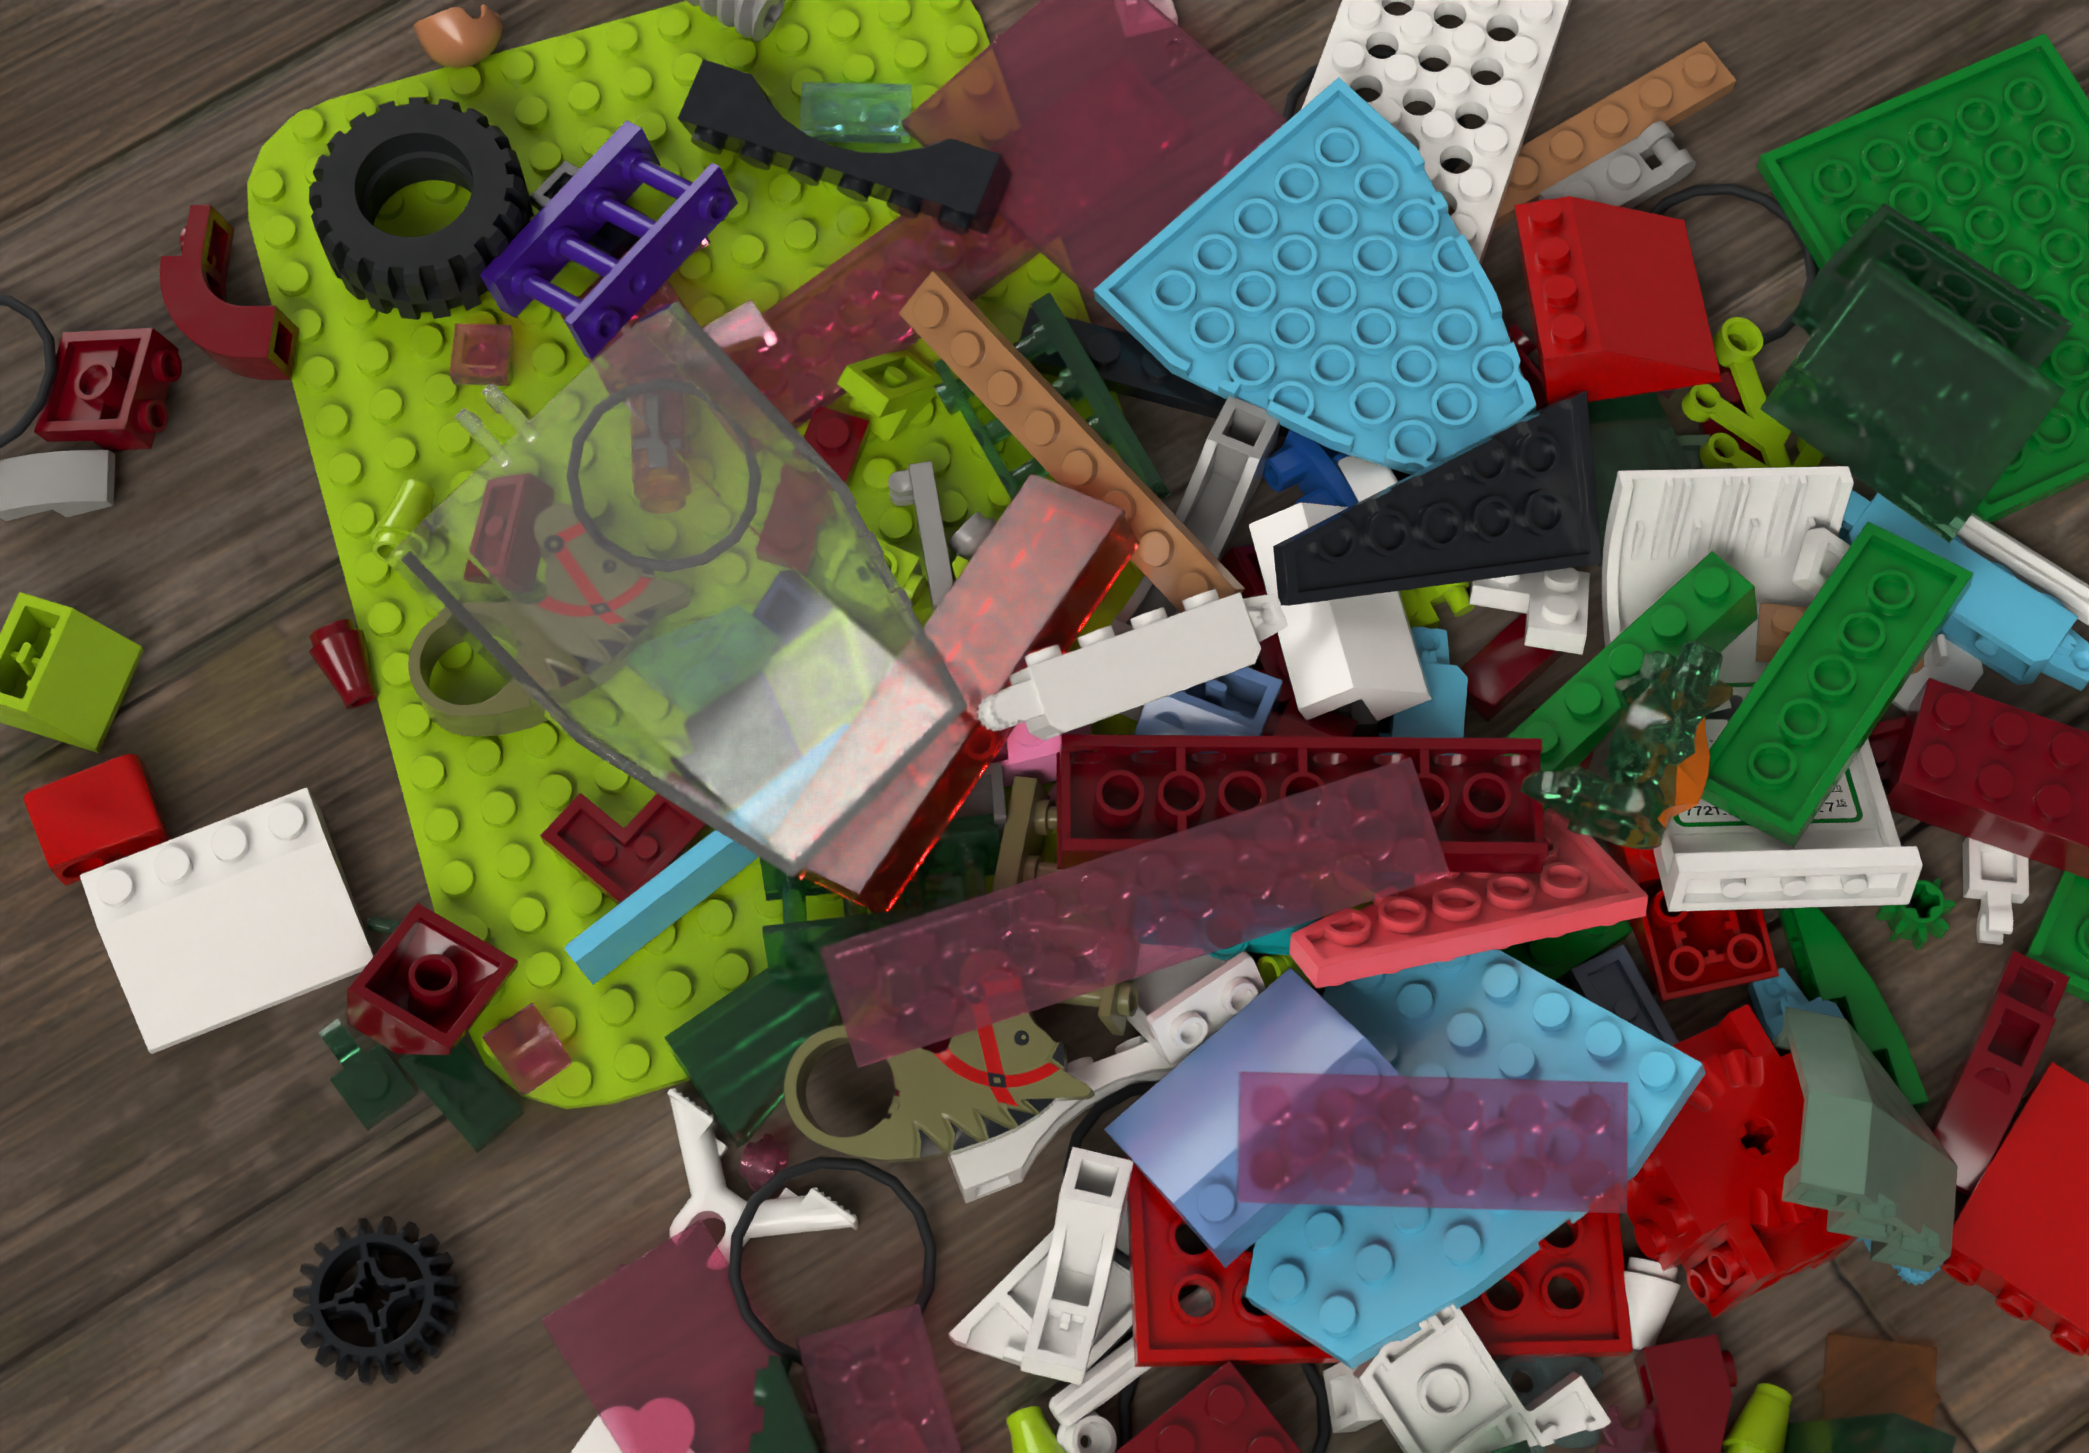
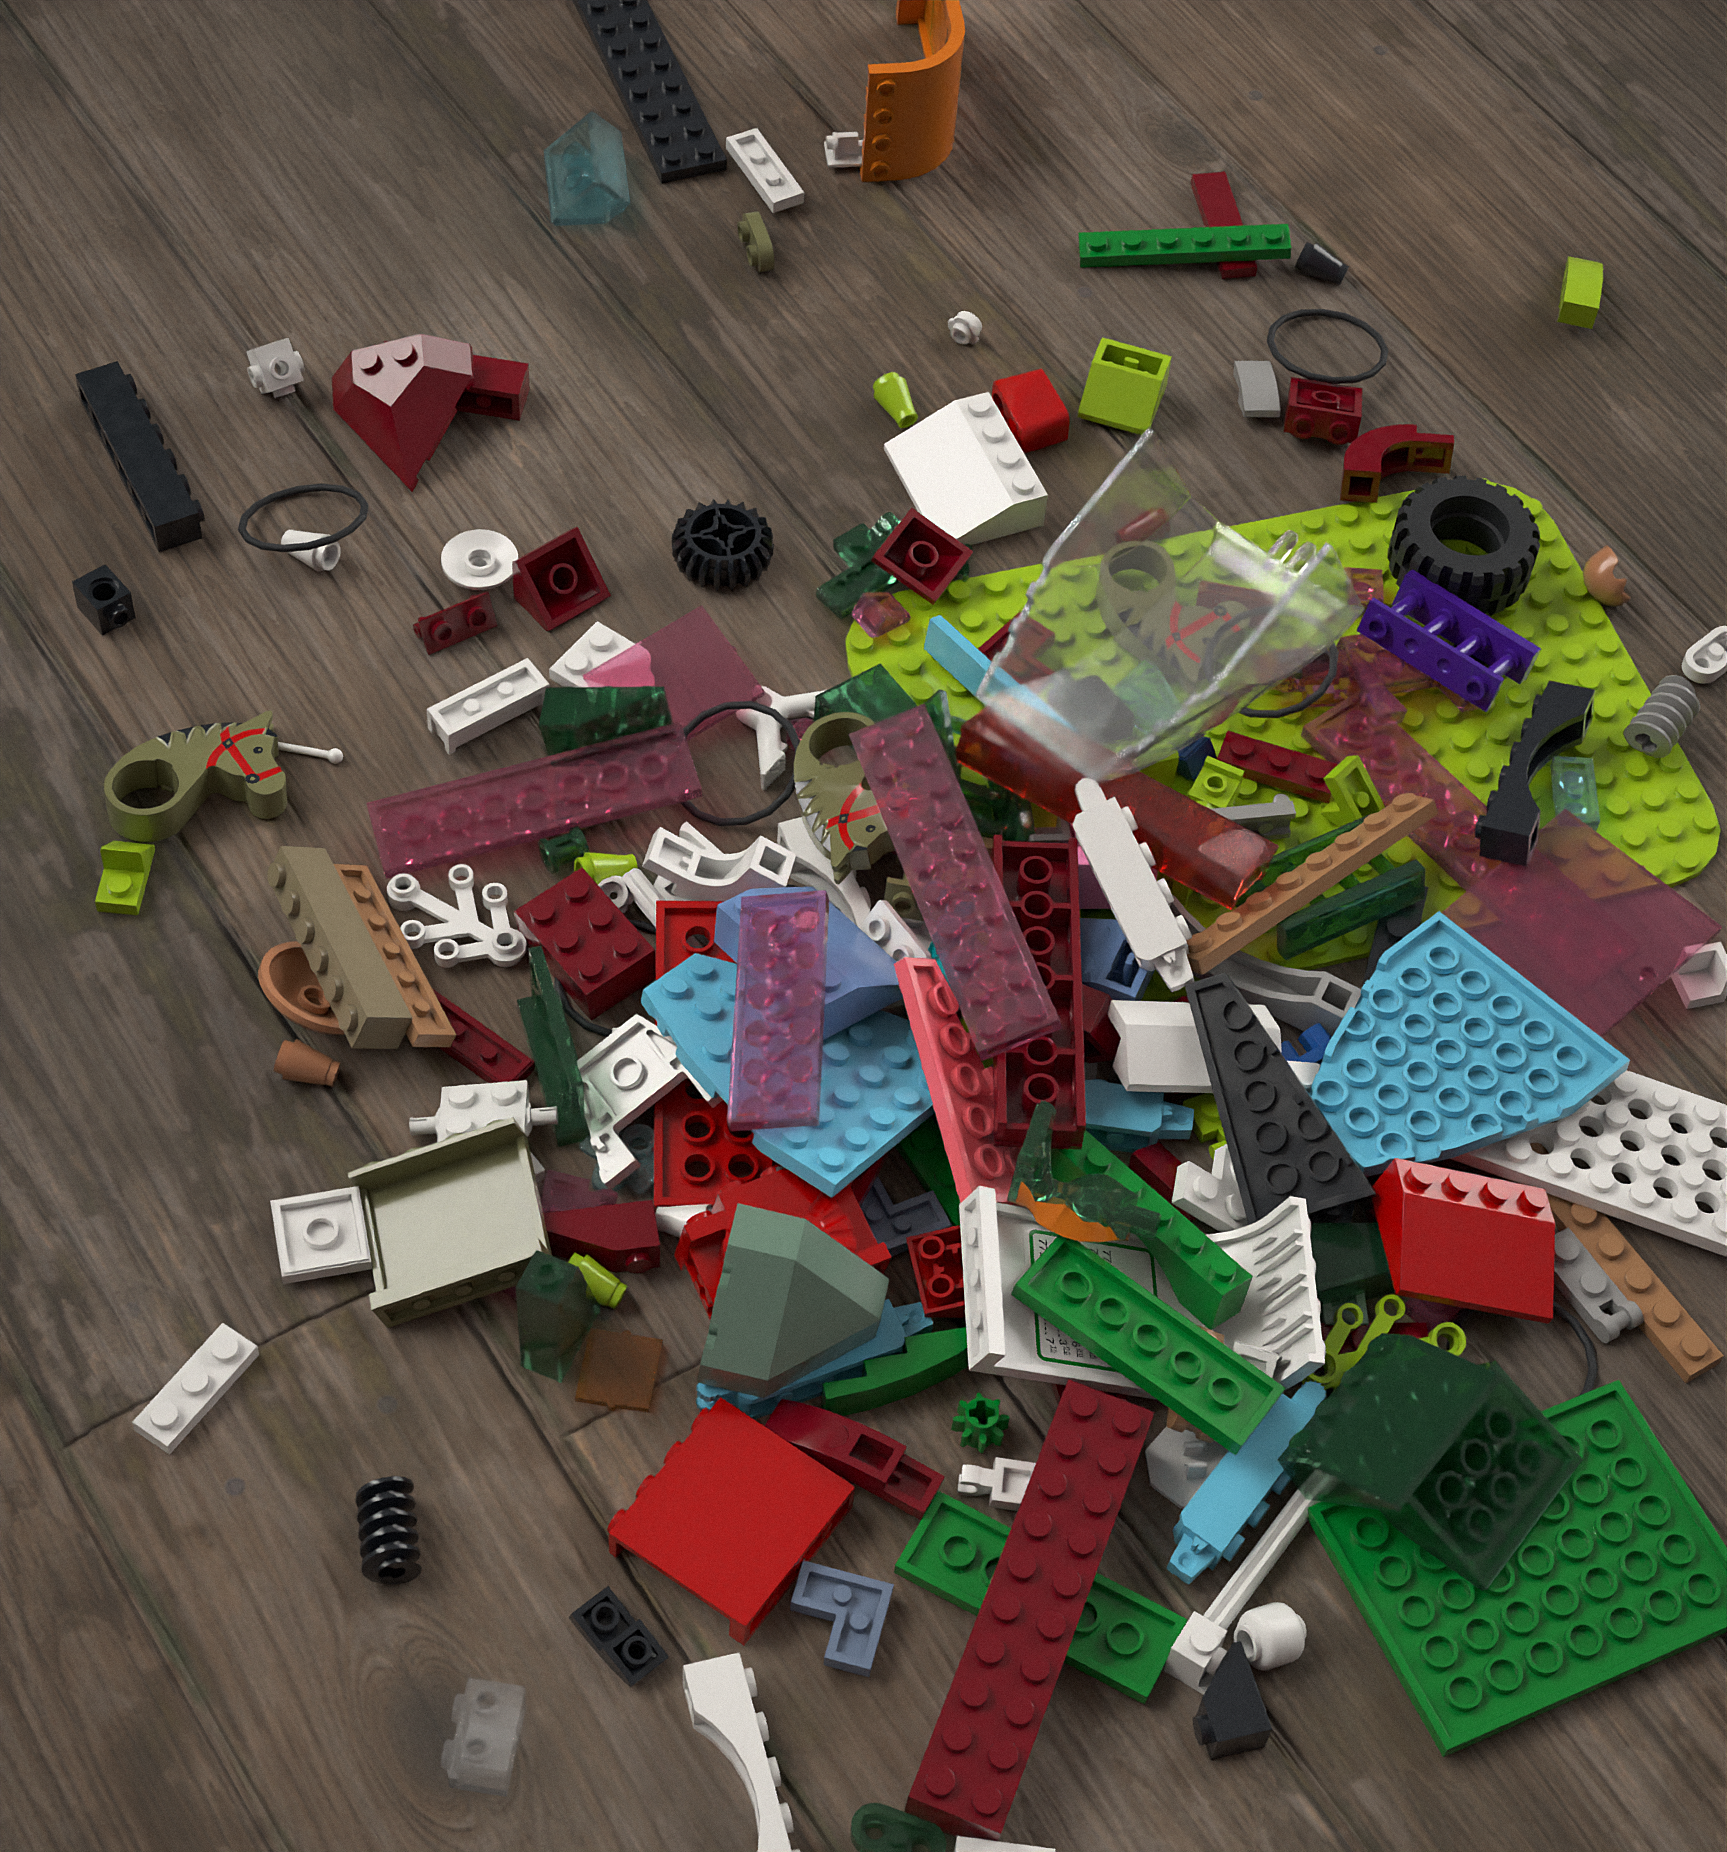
camera: 85 degrees right, 15 degrees down
(59, 1029) = (894, 396): none -> lime cone

